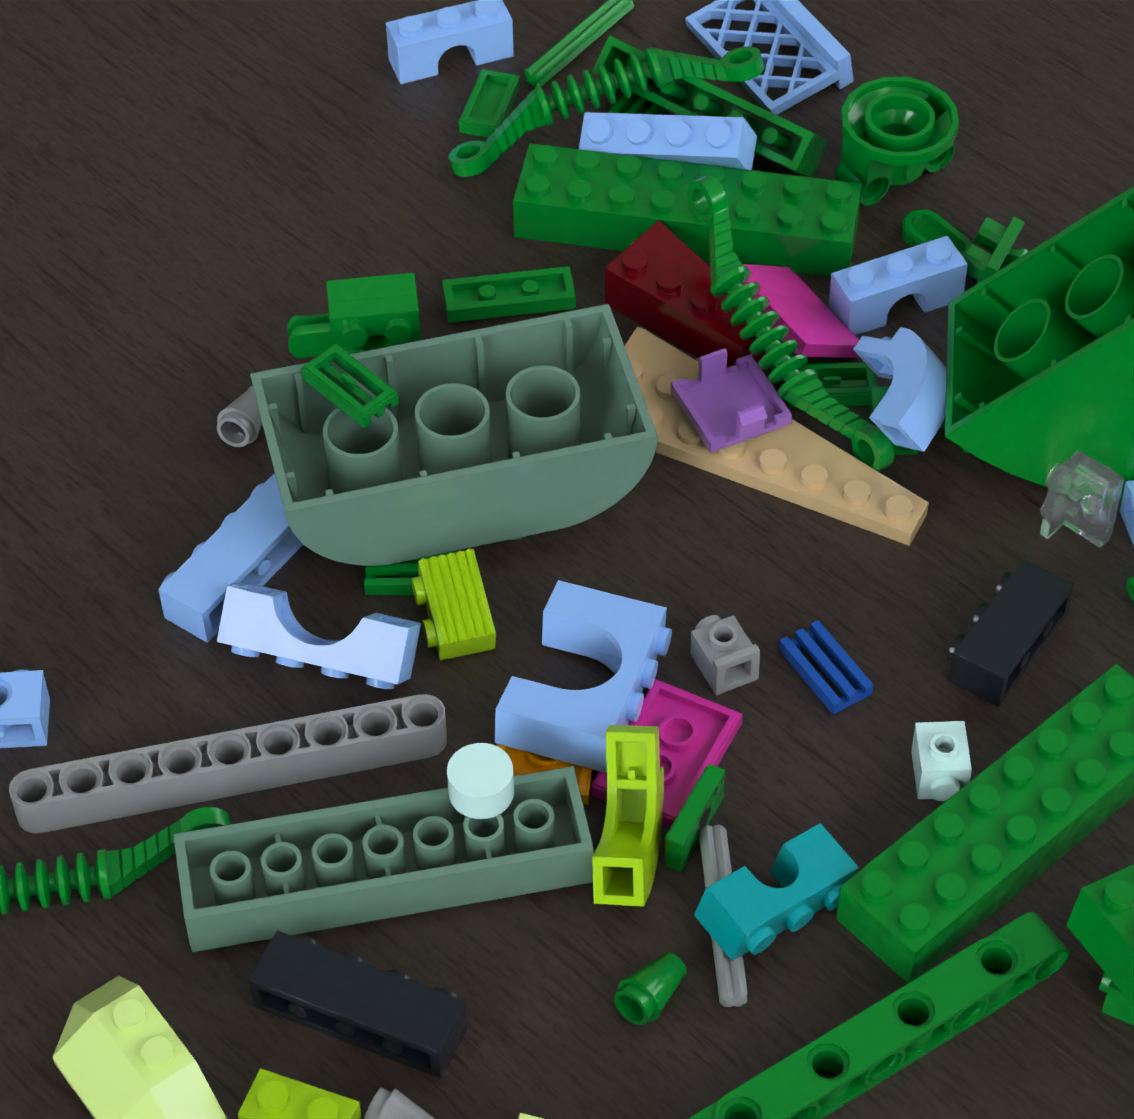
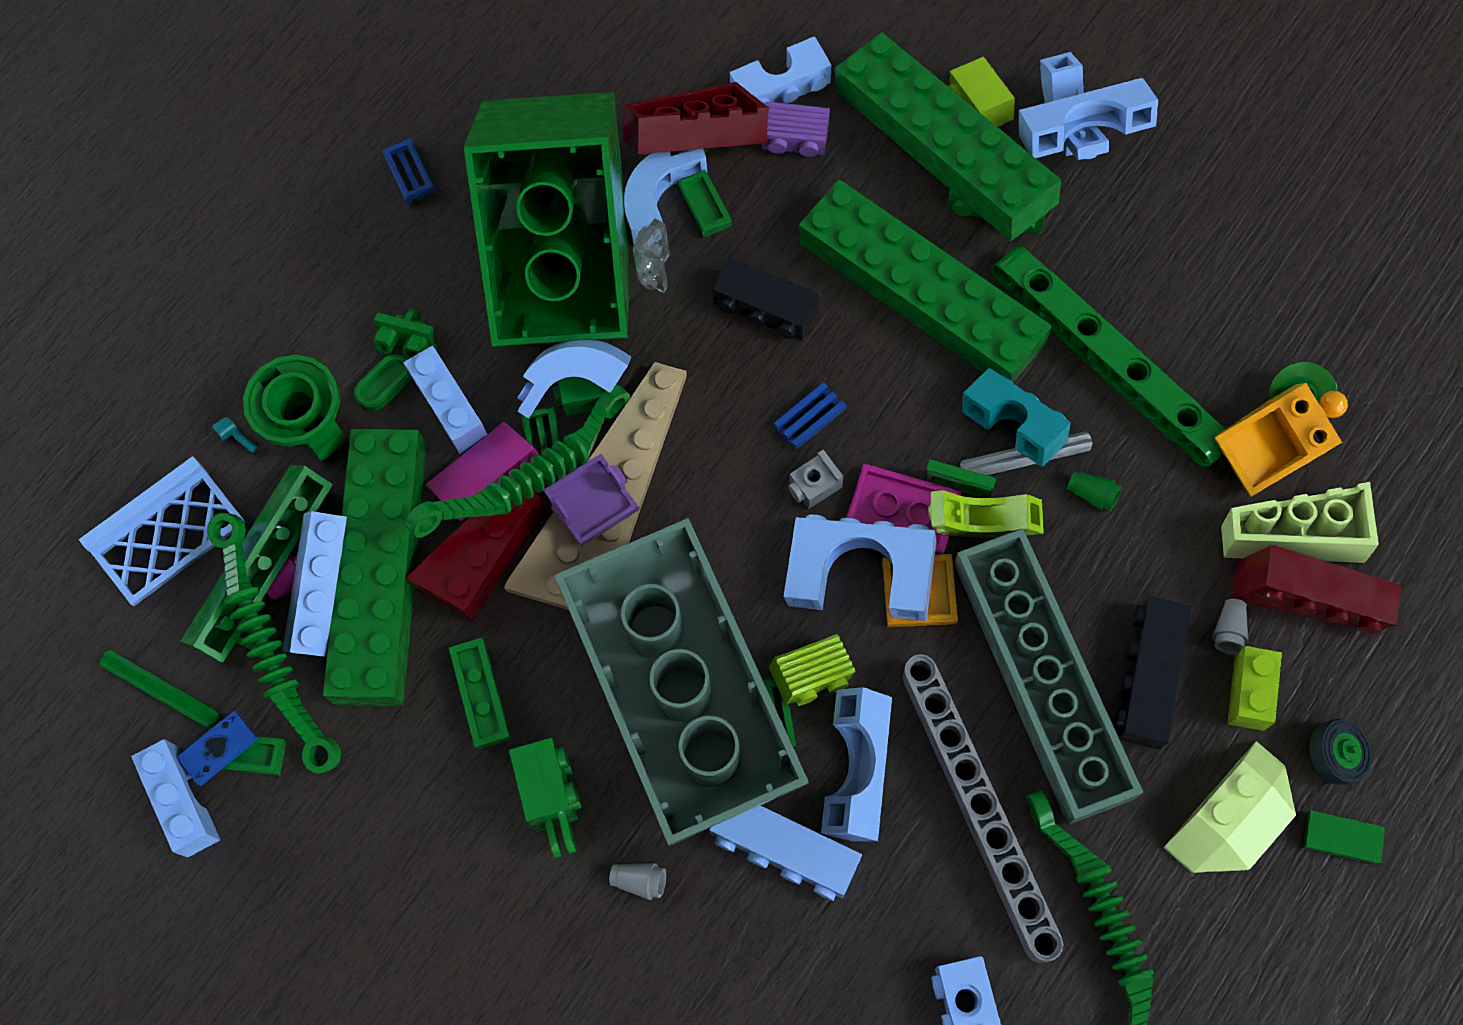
camera: 95 degrees left, 20 degrees up
(343, 390) = (656, 784): green tile -> none
(480, 780) = (994, 606): light aqua piece -> none
(497, 71) = (217, 748): none -> blue tile
(940, 759) = (882, 332): light aqua brick -> none

